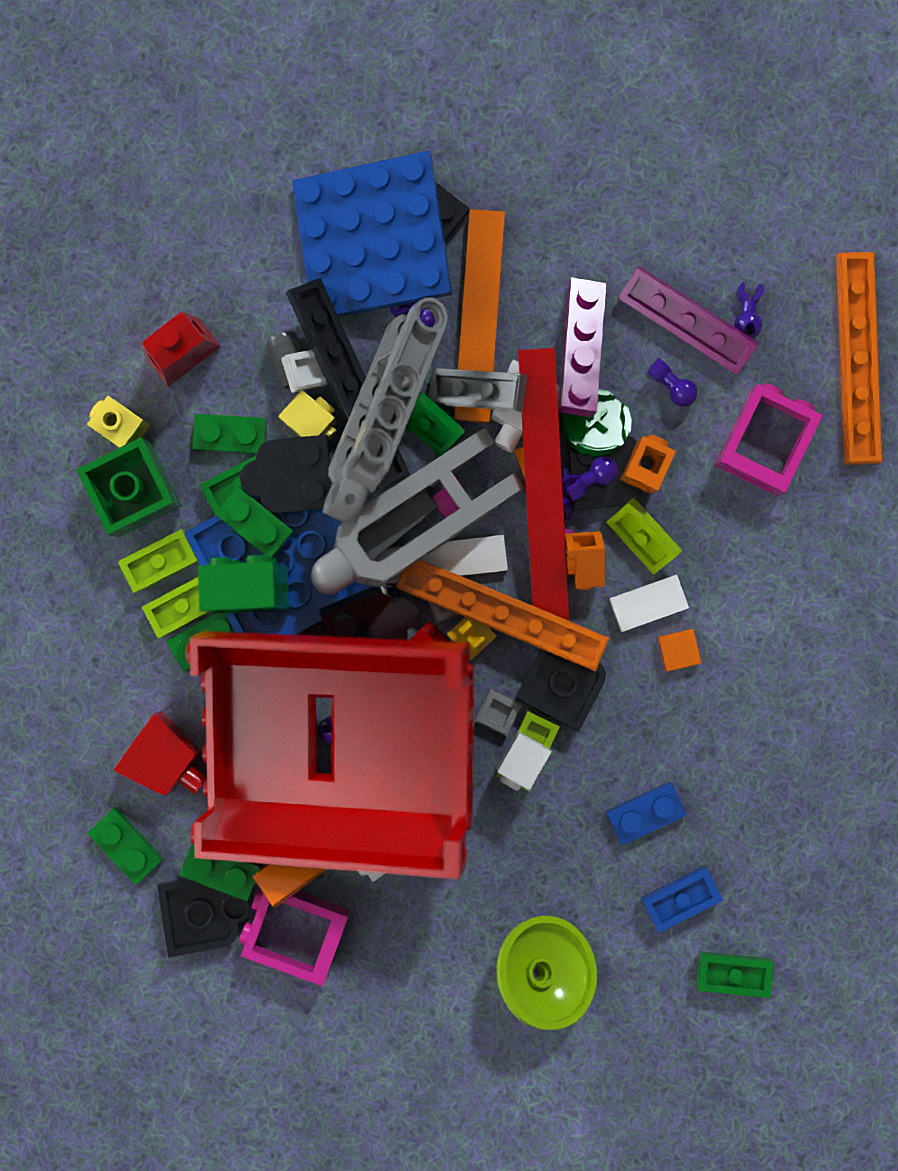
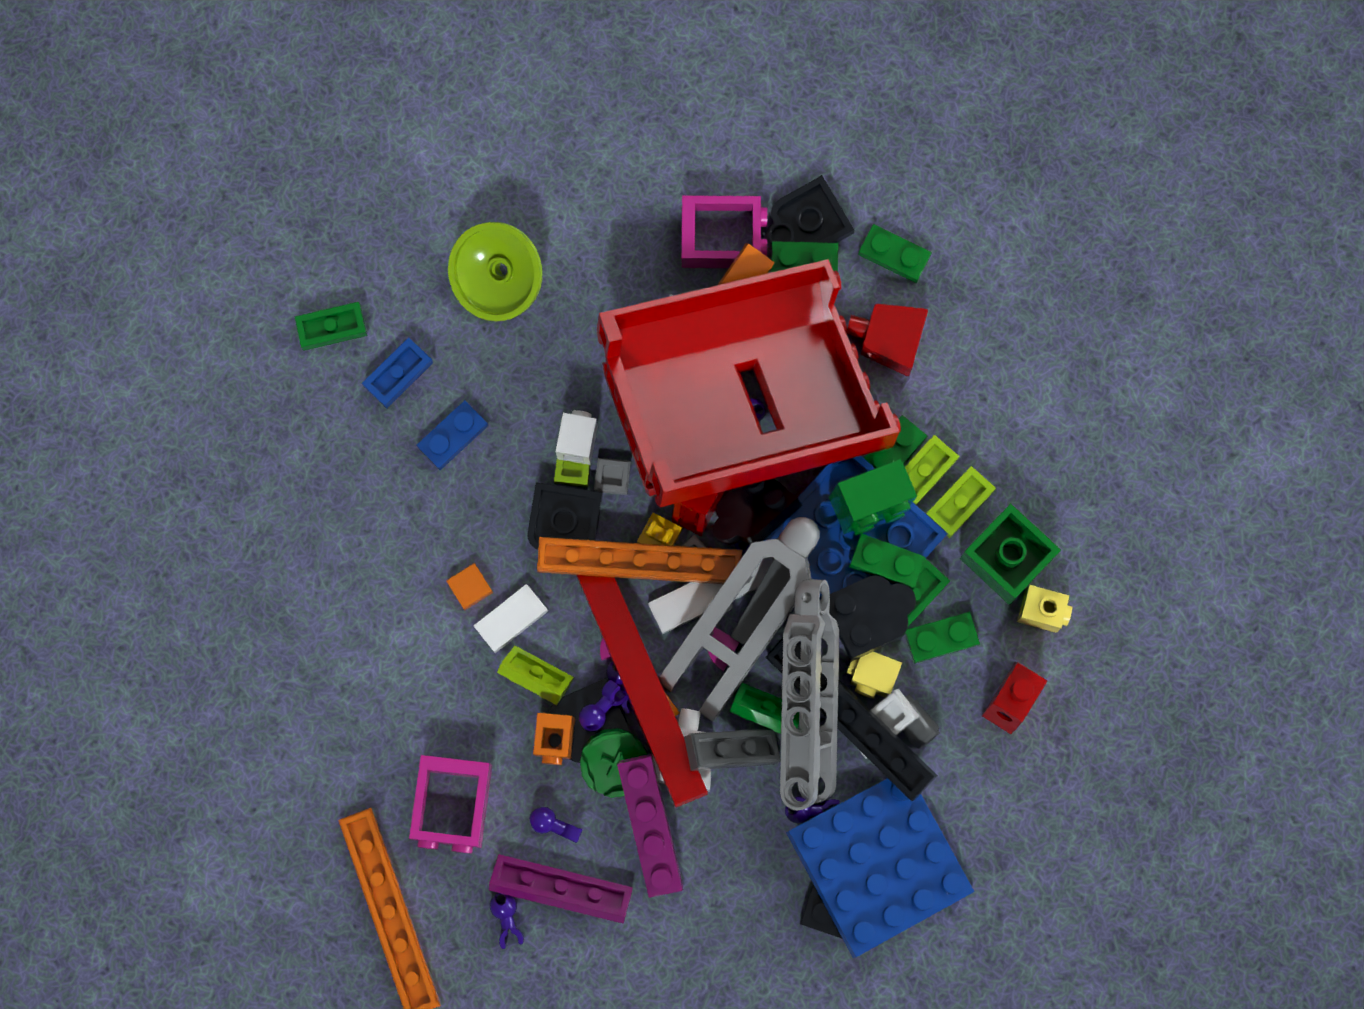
camera: 165 degrees right, 10 degrees down
(480, 300) = (760, 844): orange tile -> none
(586, 559) = (581, 634): orange brick -> none

